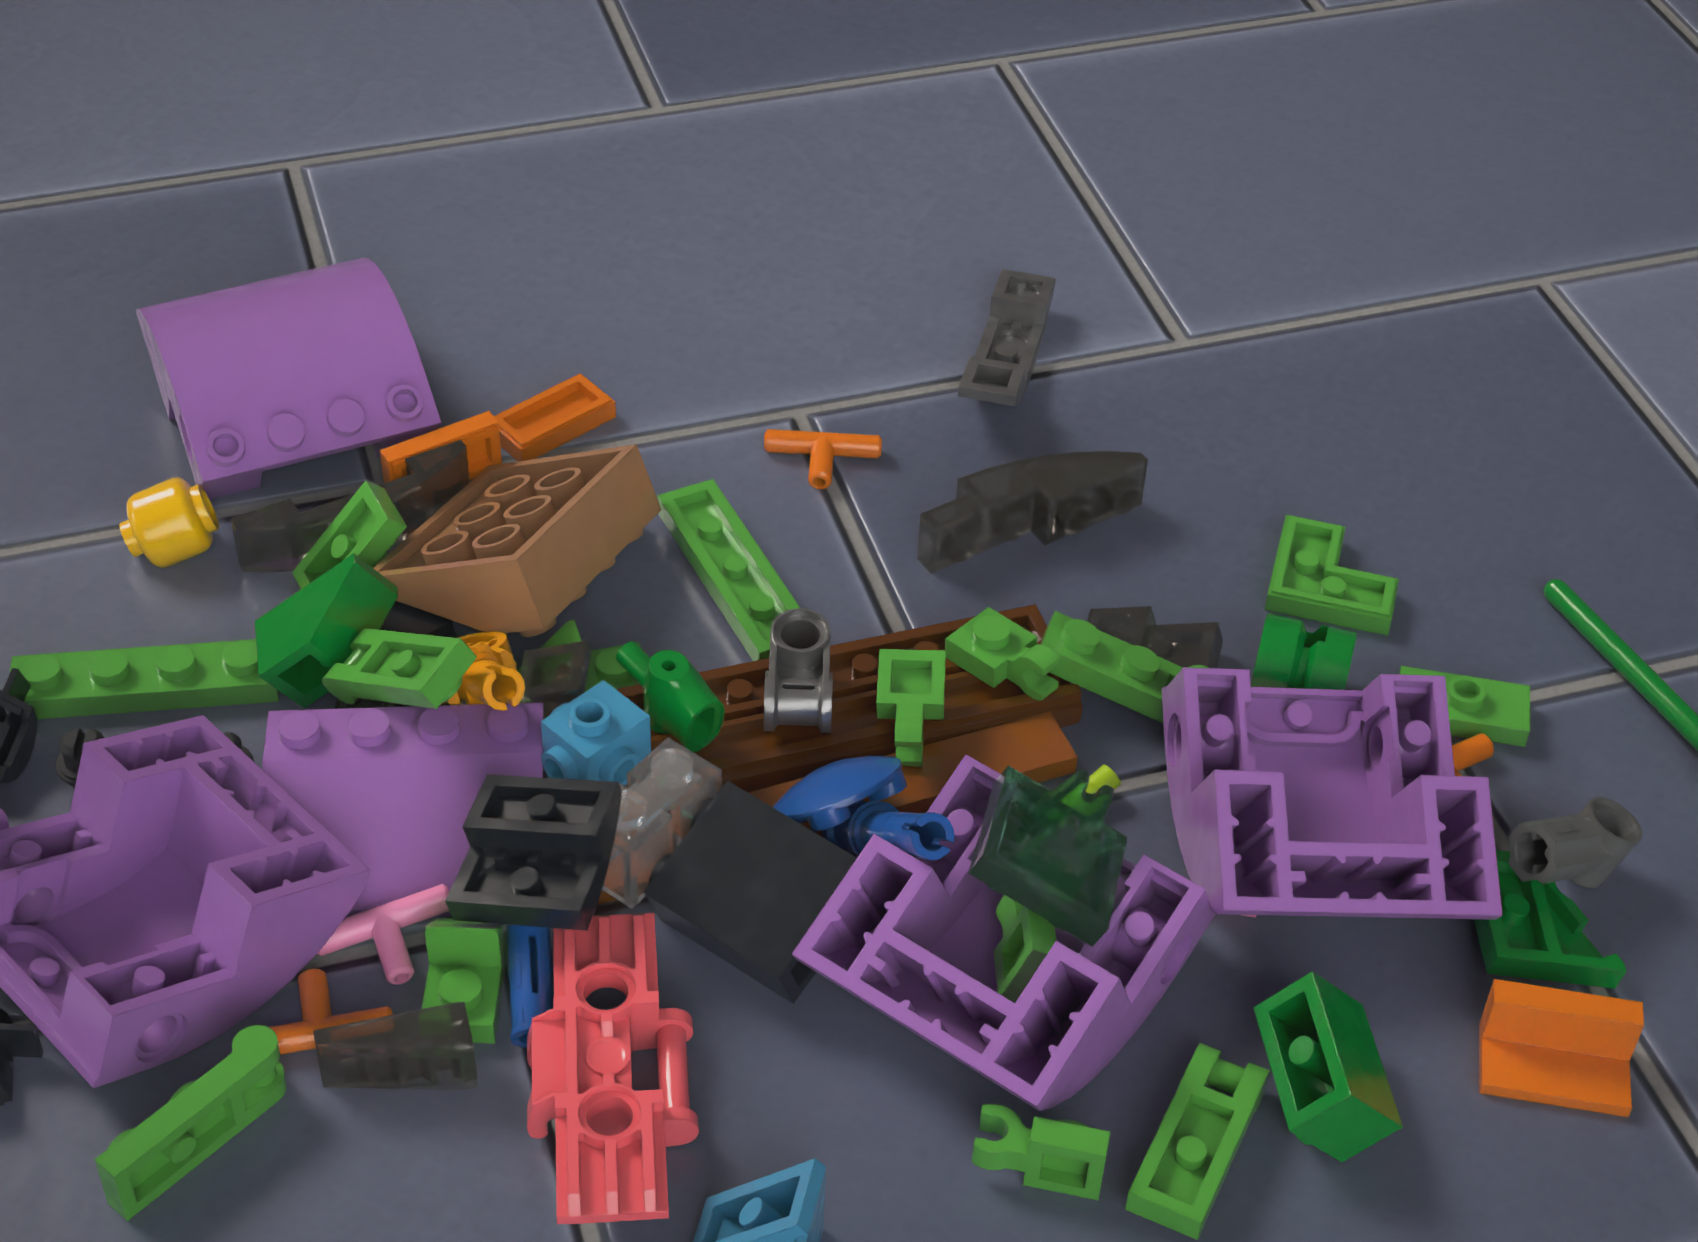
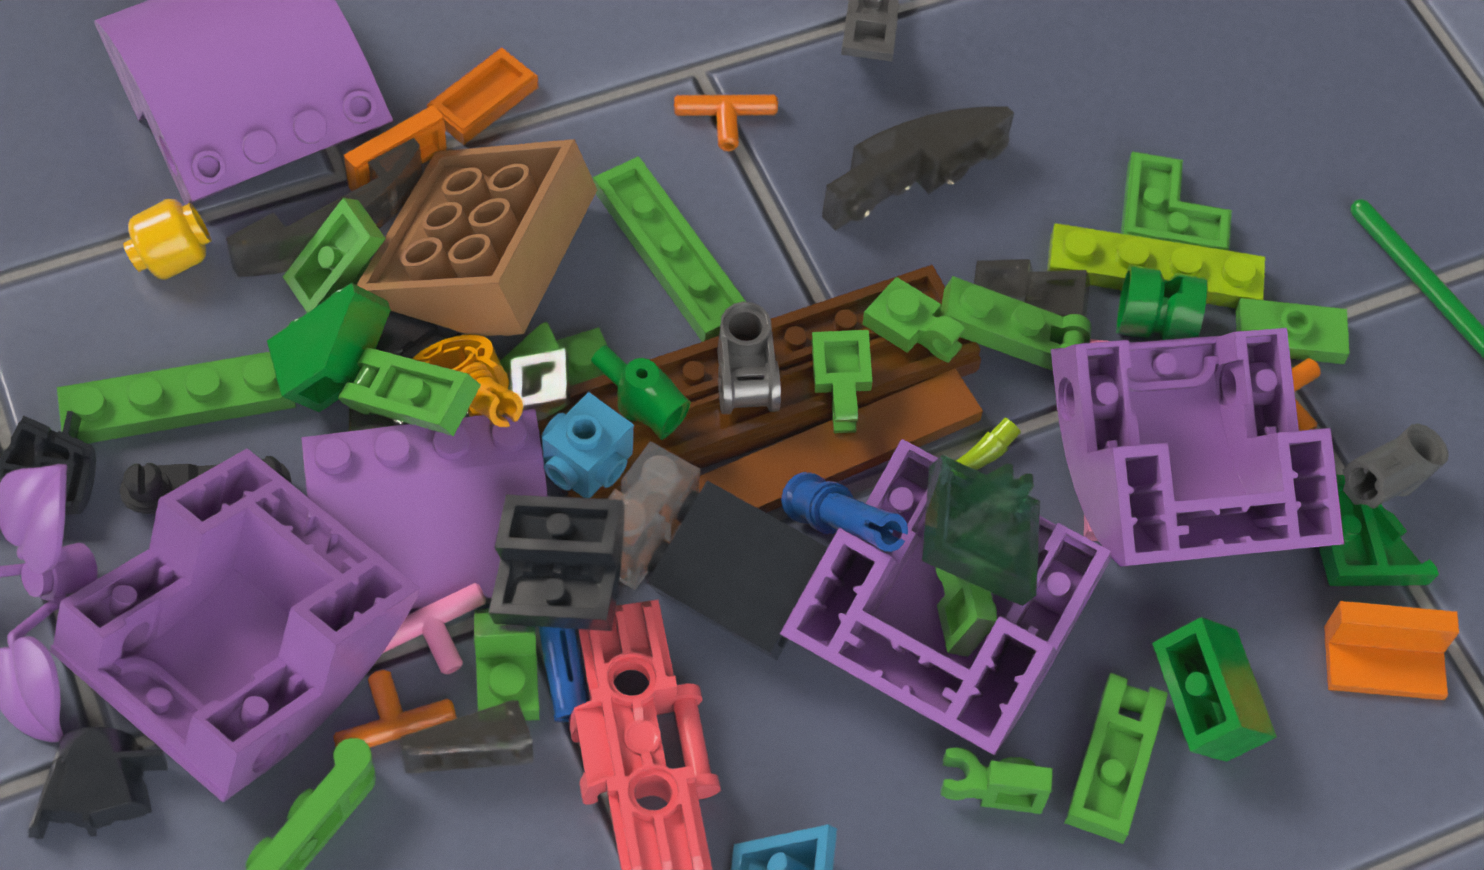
camera: 10 degrees left, 15 degrees up
(829, 790) = (796, 472): blue dish -> none
(1380, 643) = (1109, 254): none -> lime plate

